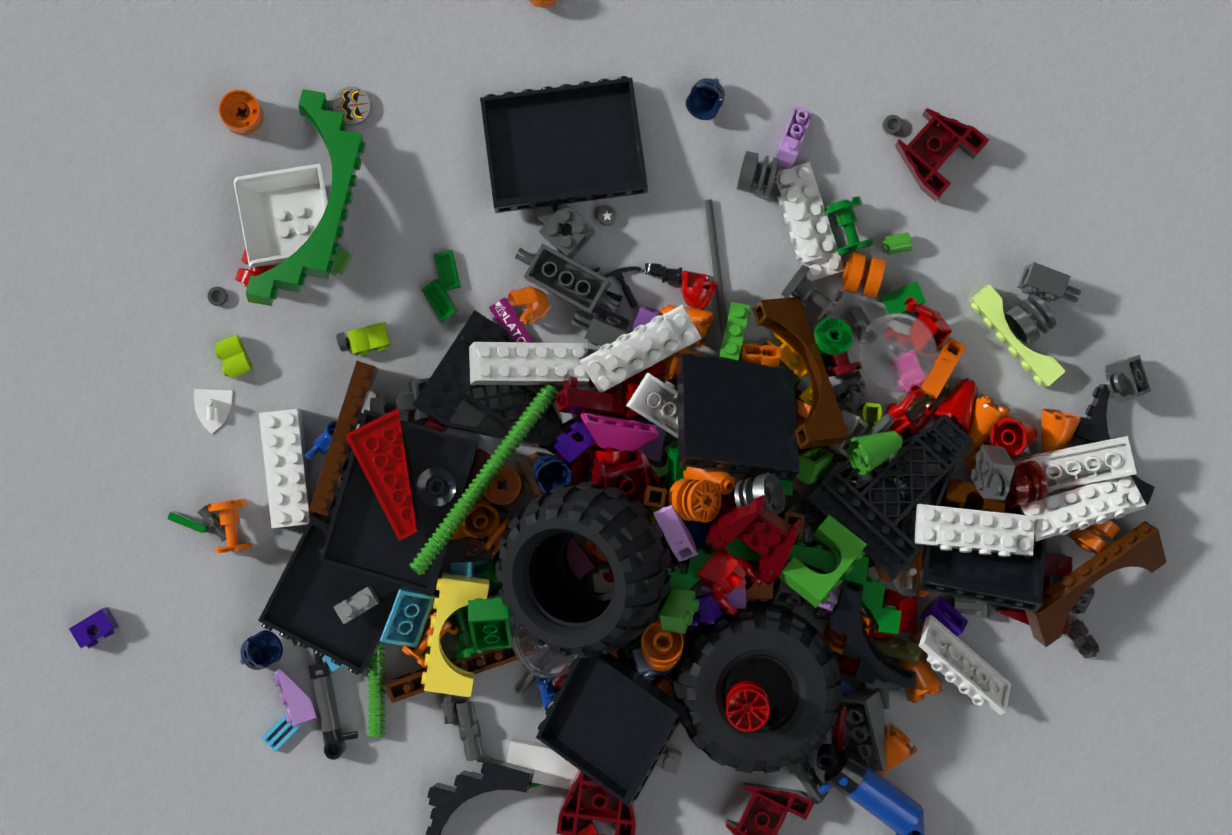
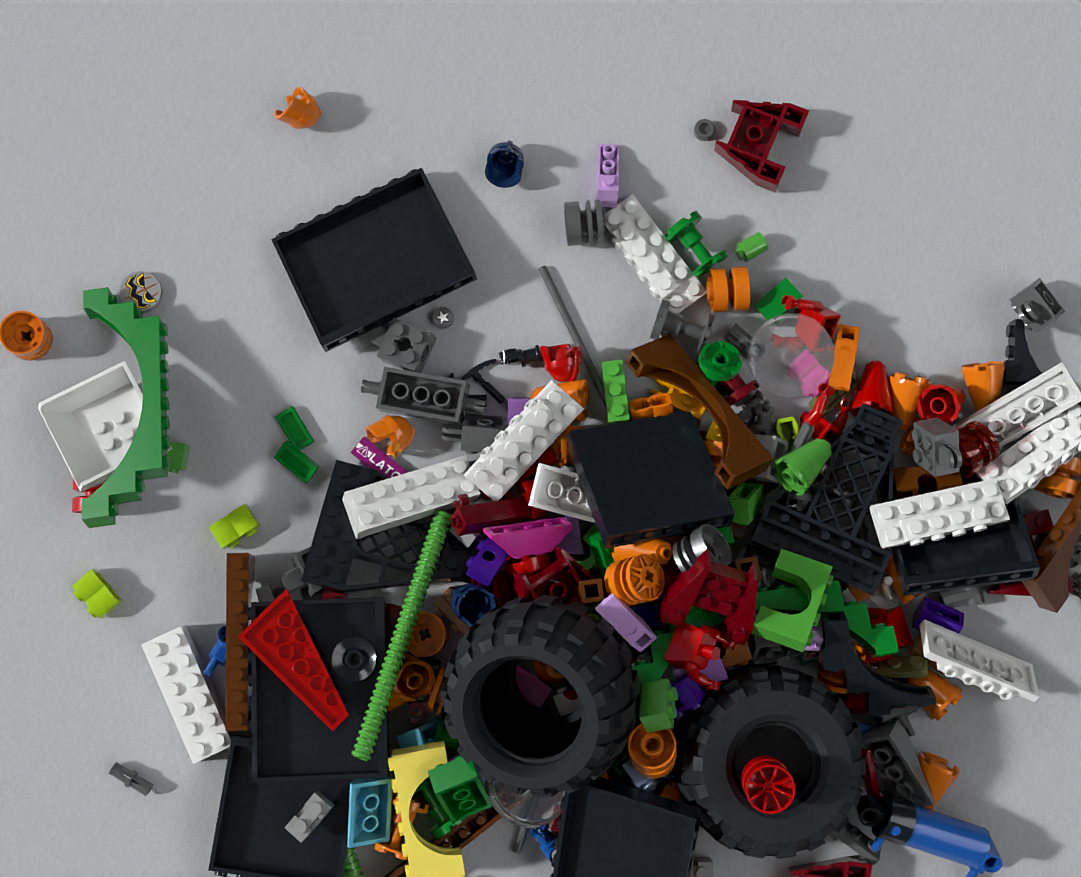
camera: 20 degrees left, 5 degrees down
(188, 522) = (101, 787): green tile -> none
(212, 407) = (91, 655): white shield -> none
(217, 296) = (60, 536): dark grey tile -> none
(229, 517) = (144, 768): orange piece -> none
(342, 342) = (207, 539): dark grey tile -> none
(990, 307) = (944, 323): yellowish green arch -> none
(1031, 319) = (916, 278): dark grey wheel -> none
(1047, 283) = (919, 236): dark grey brick -> none

